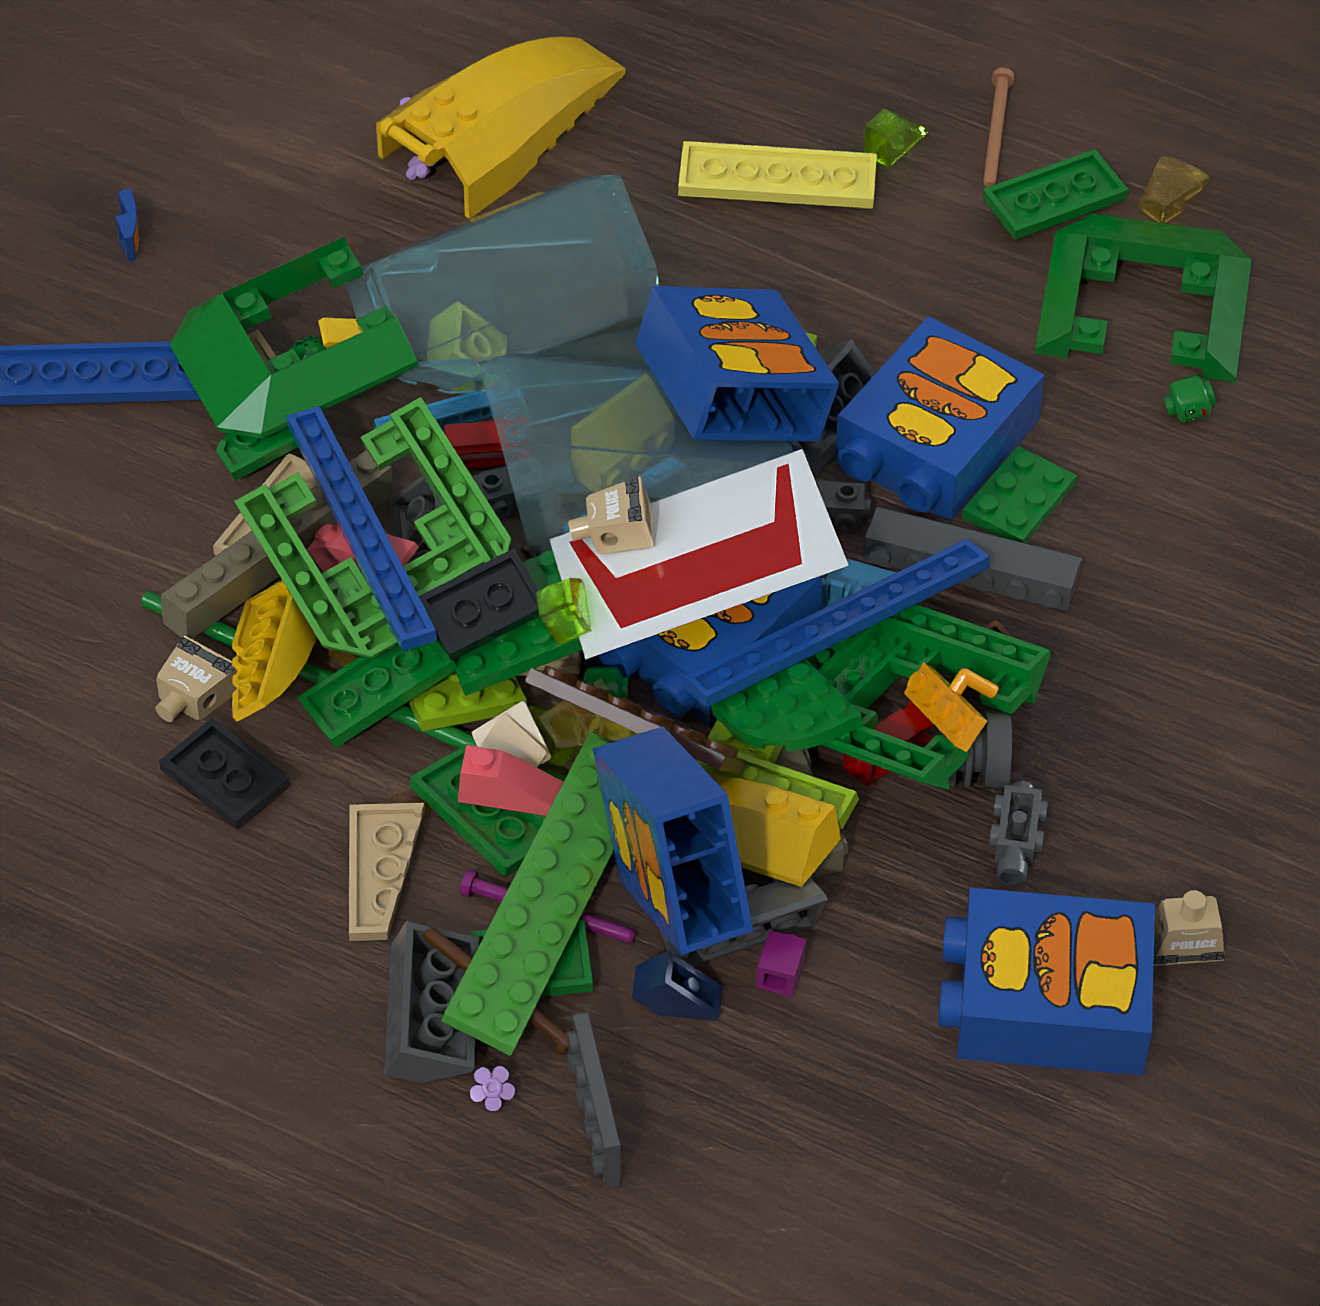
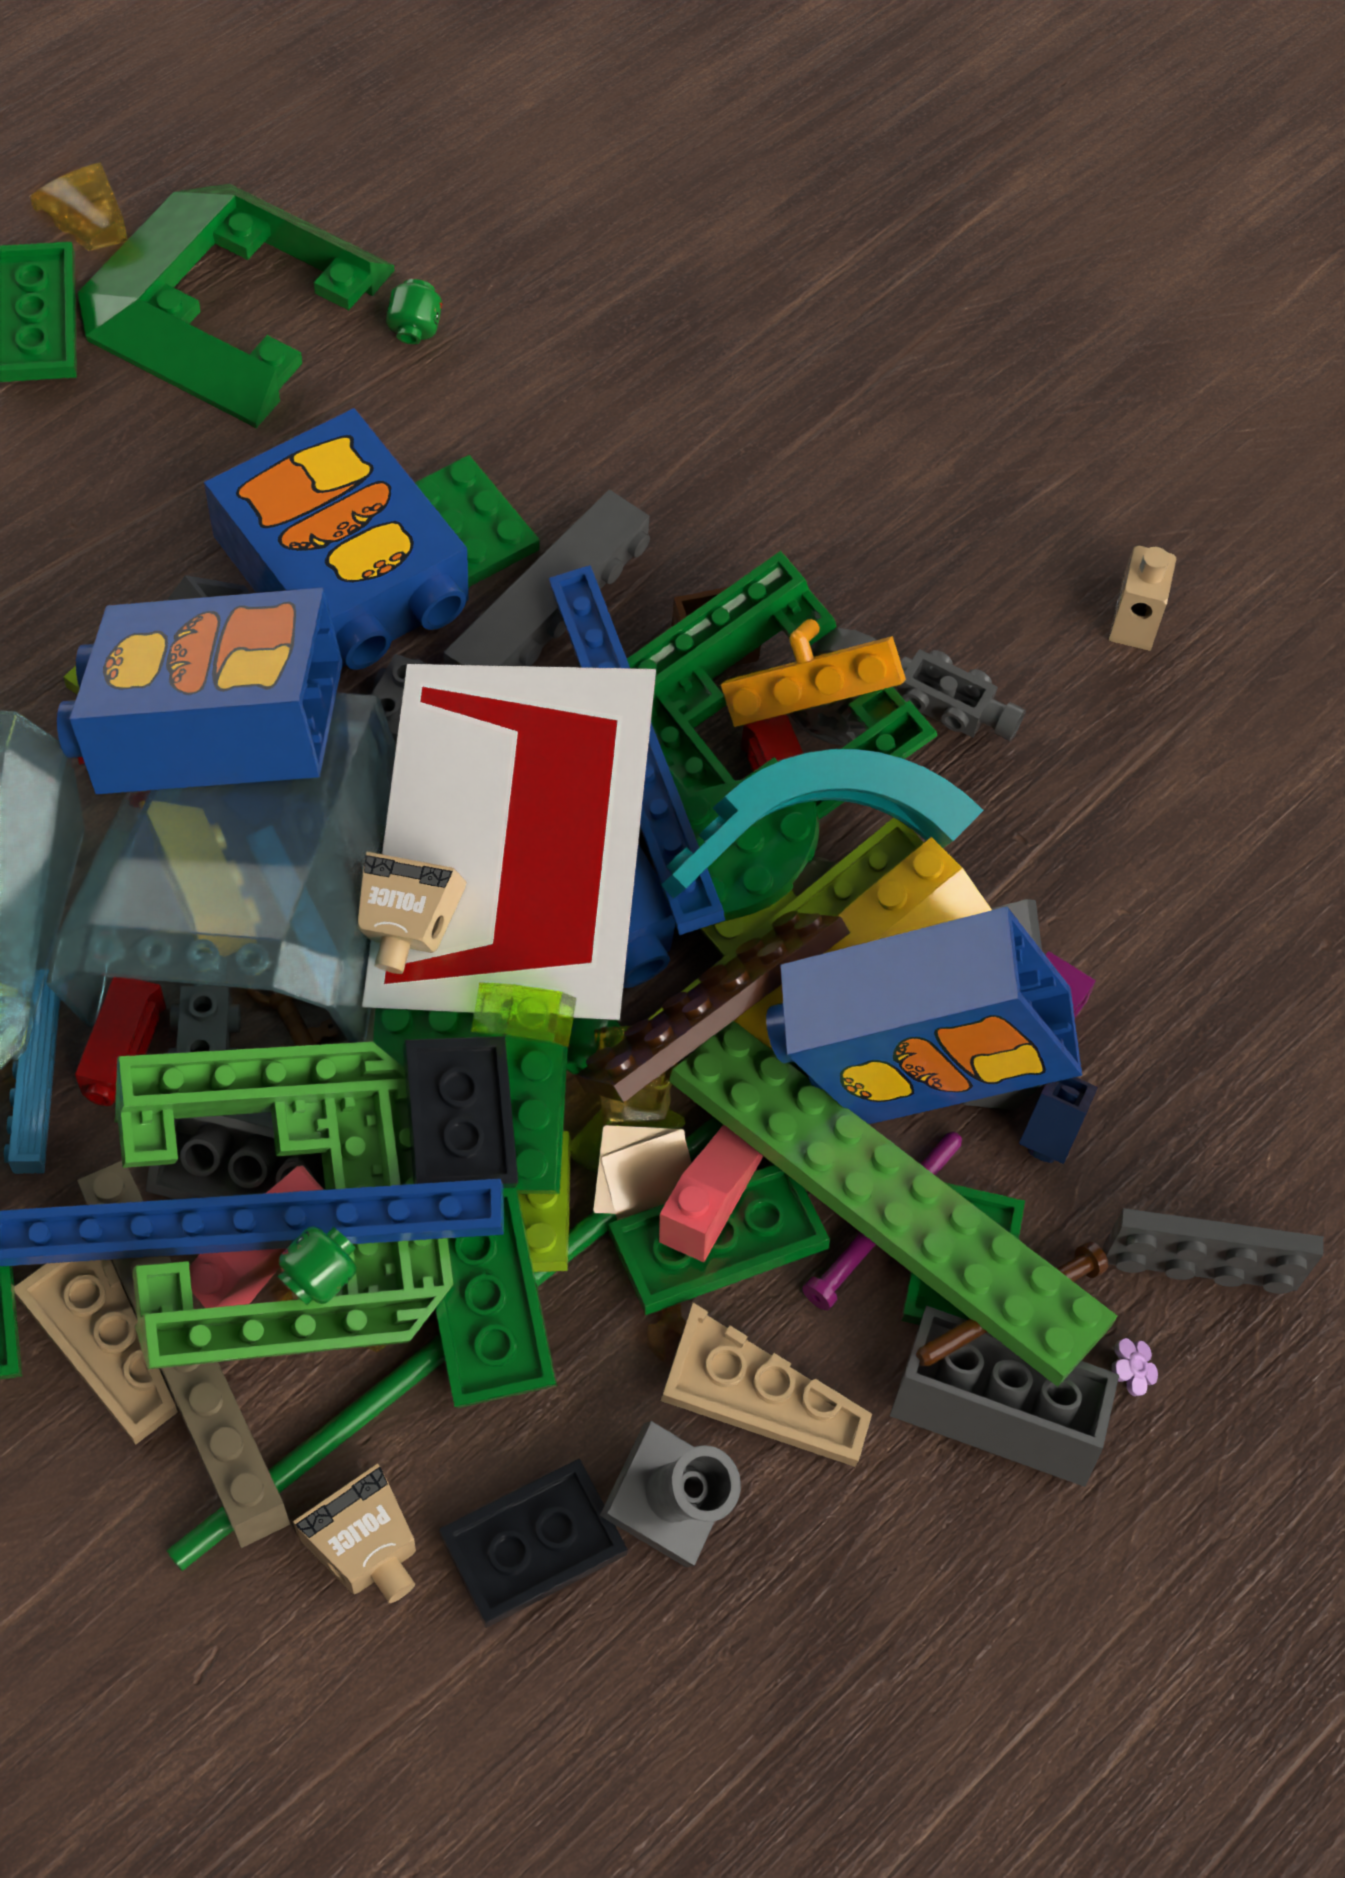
camera: 75 degrees left, 10 degrees up
(270, 649) = (386, 1416): yellow wedge -> none
(285, 850) = (672, 1493): none -> dark grey plant
(337, 560) = (317, 1264): none -> green head
(862, 782) = (863, 777): none -> teal arch
(1051, 981) = (1177, 736): blue brick -> none

